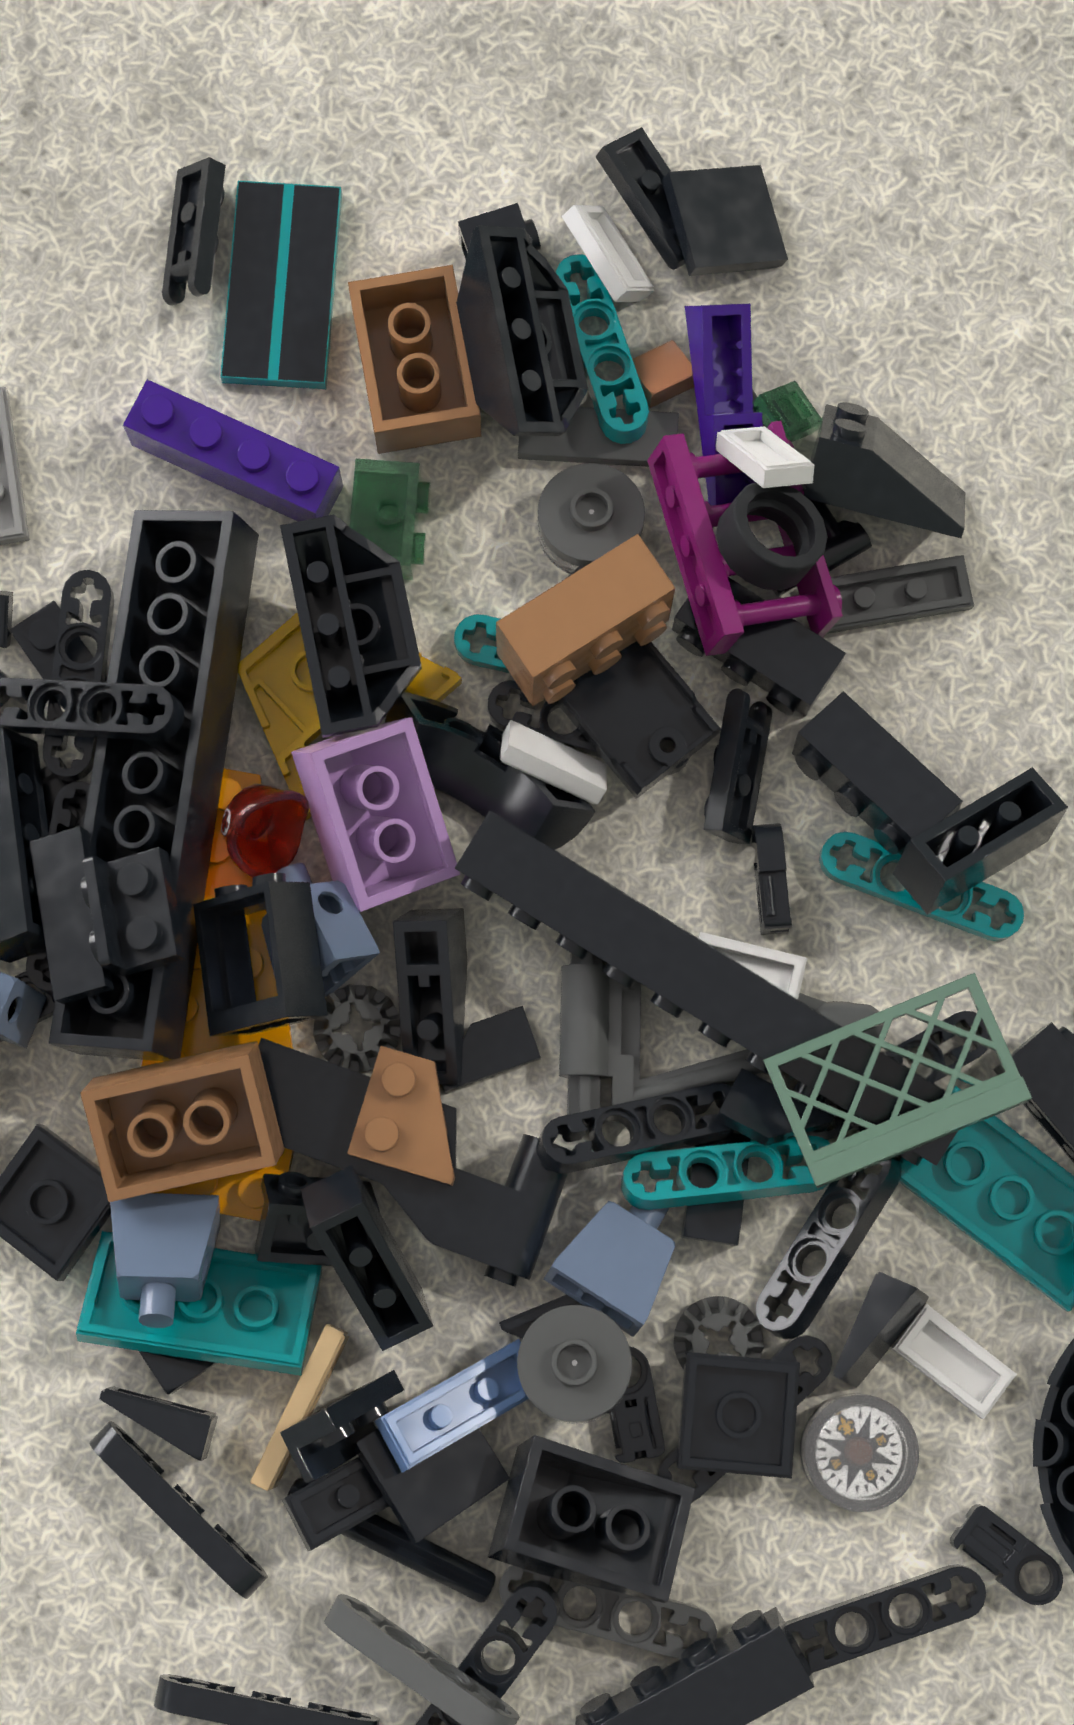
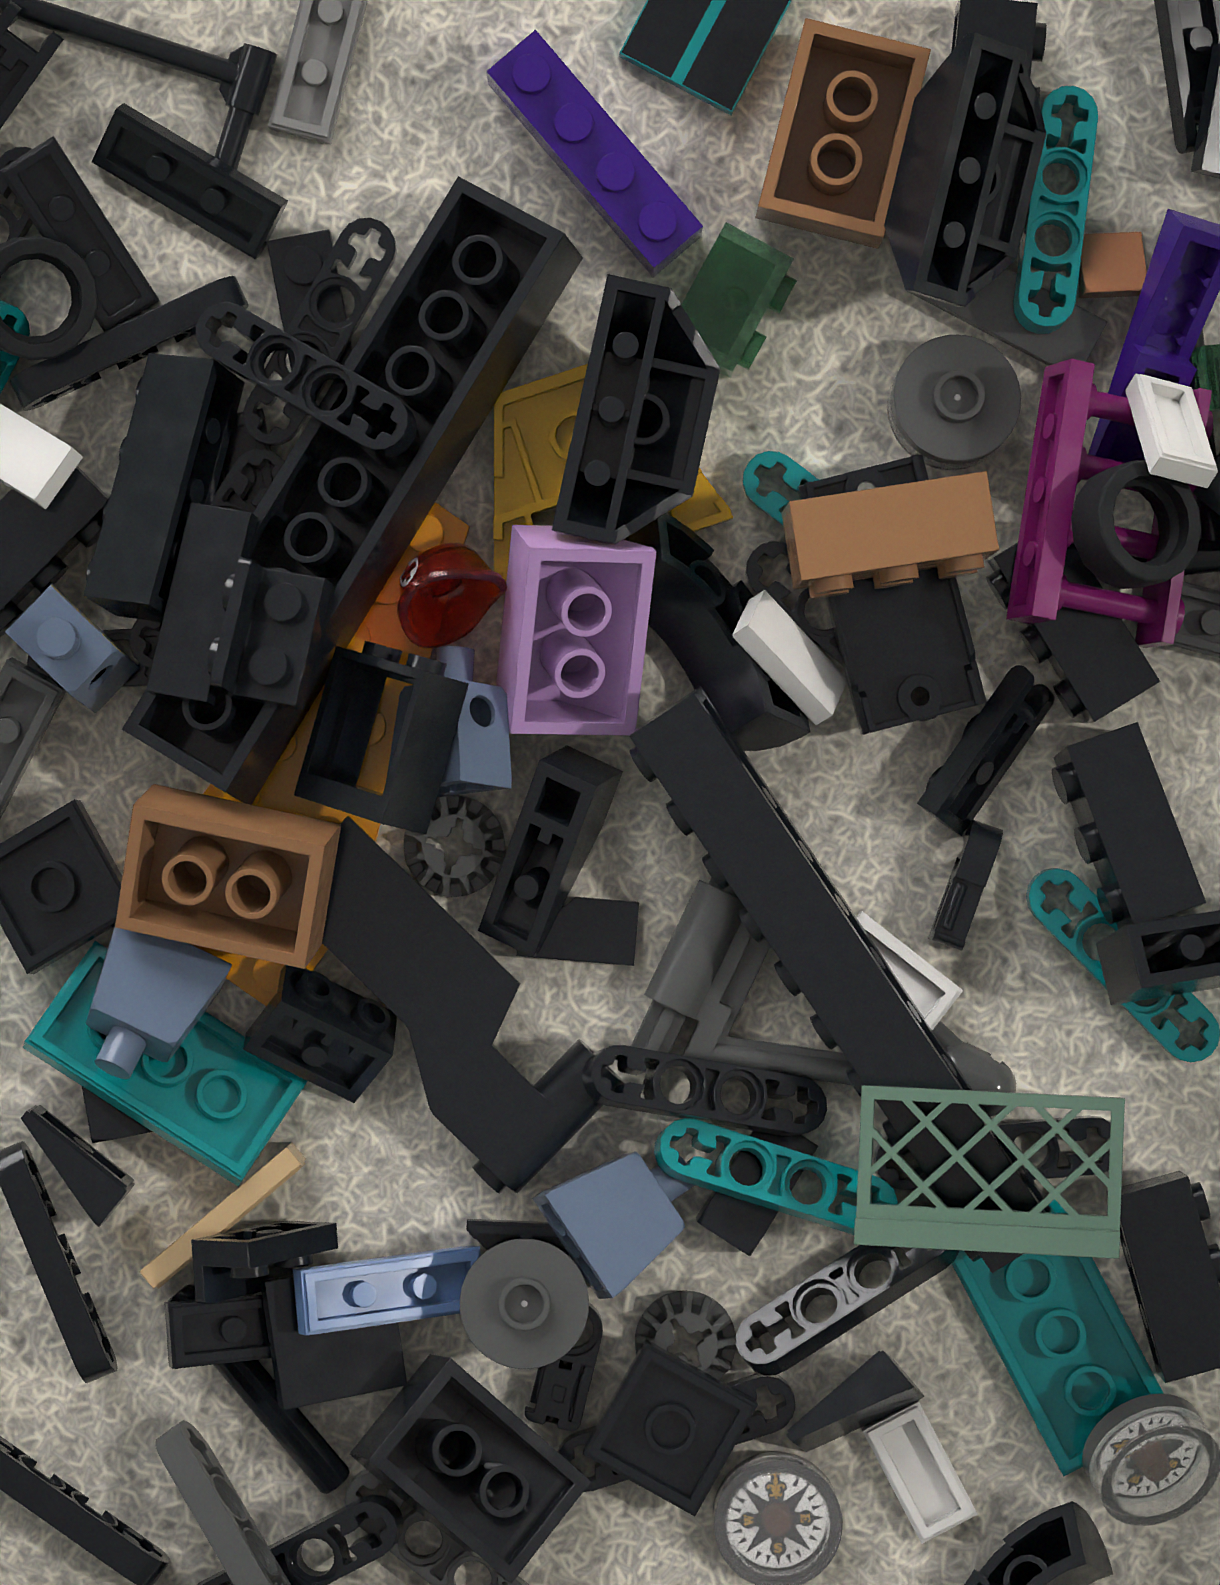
camera: 25 degrees right, 10 degrees up
(366, 1257) = (357, 1101): black brick -> none
(404, 1118) = (460, 972): medium nougat wing -> none
(608, 253) = (1114, 101): white tile -> none
(757, 1112) = (832, 1129): black tile -> none

